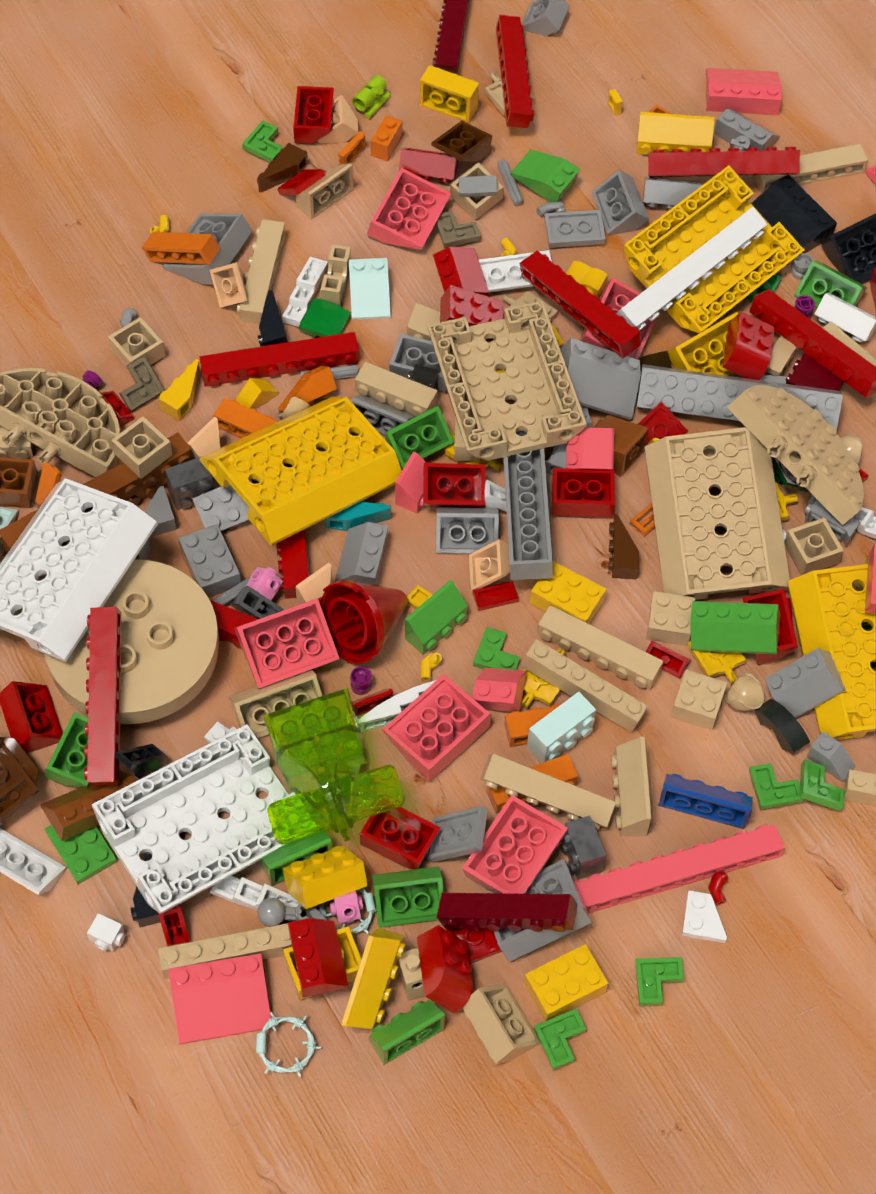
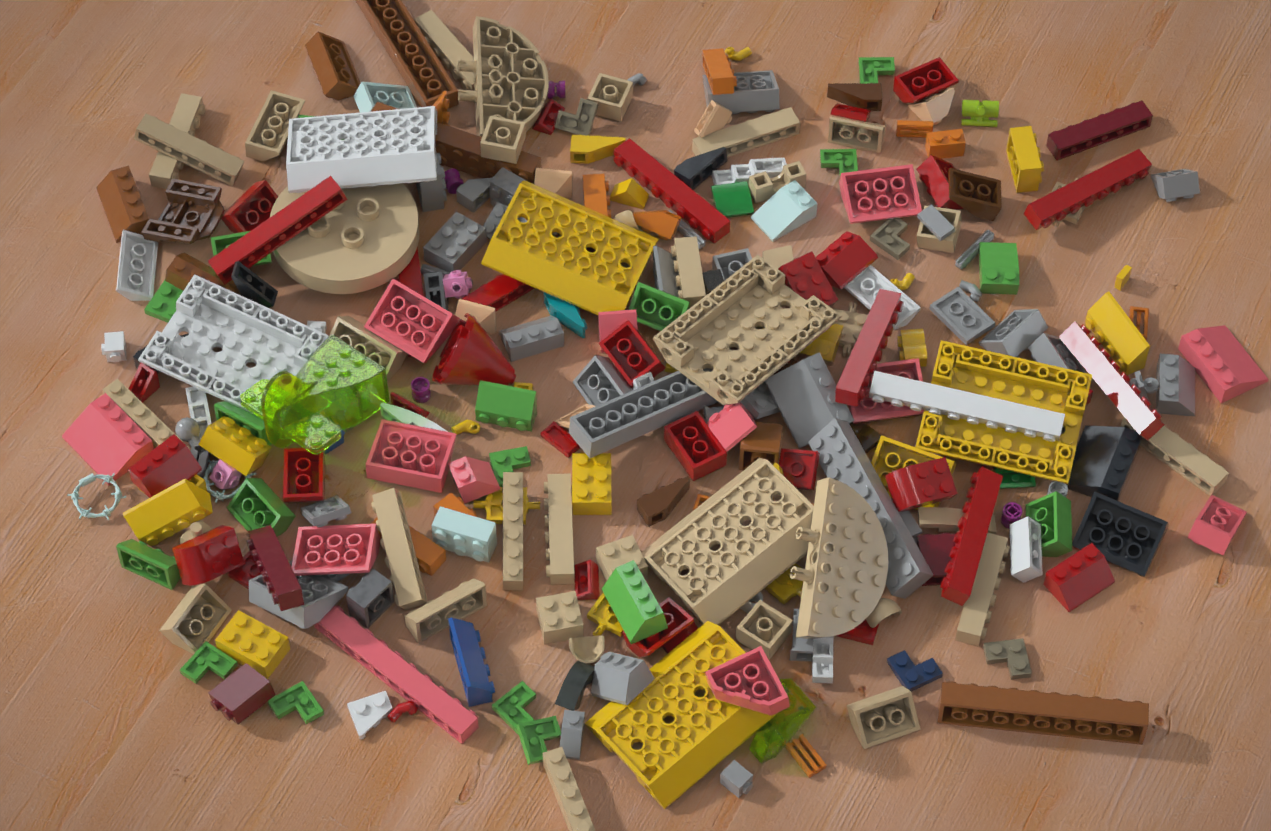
camera: 60 degrees right, 5 degrees down
(345, 216) = (839, 158): none -> bright green plate
(620, 1022) = (241, 694): none -> brick

